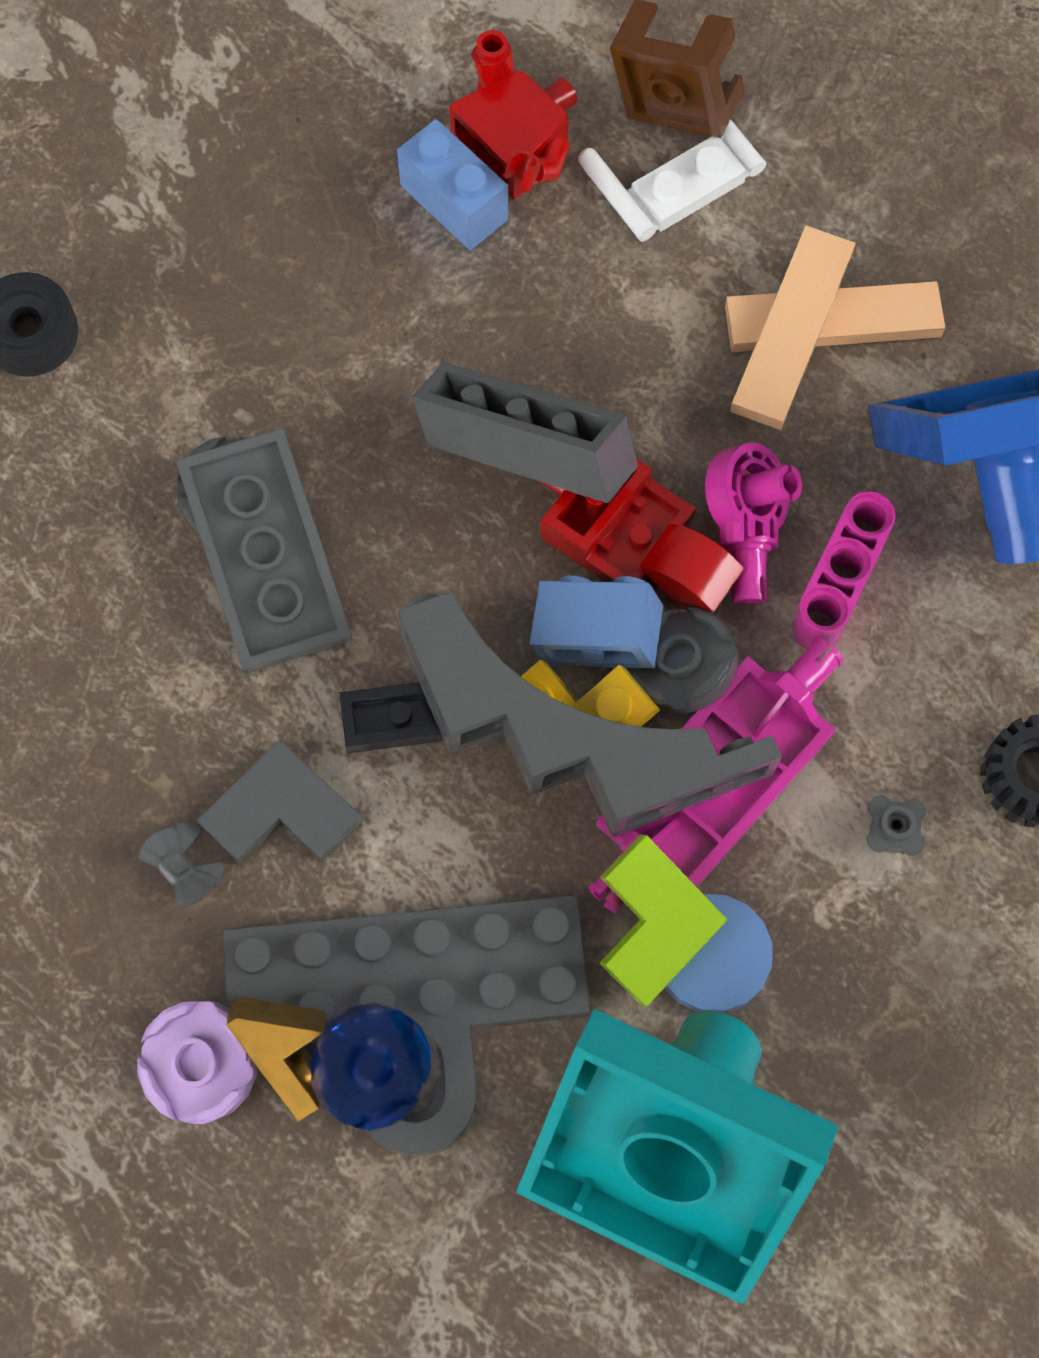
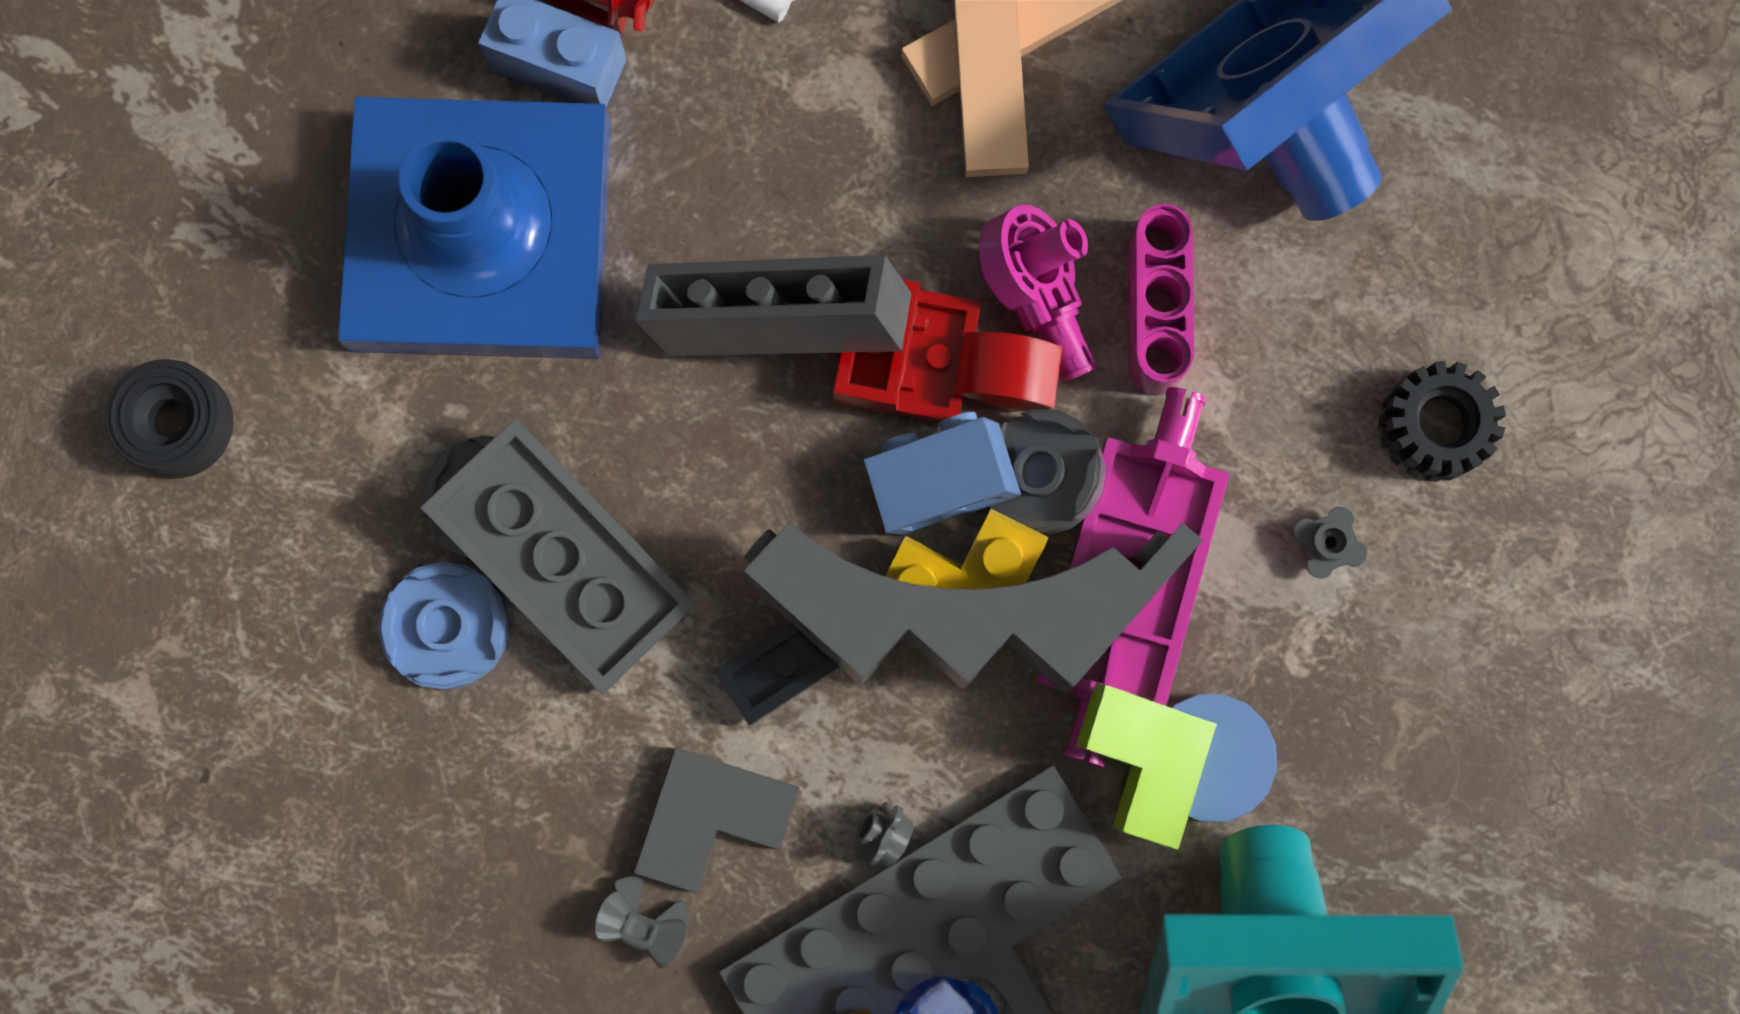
camera: 30 degrees left, 10 degrees up
(149, 568) = (444, 626): none -> medium blue tile
(328, 288) = (509, 269): none -> blue piece
(409, 884) = (883, 835): none -> dark grey plate

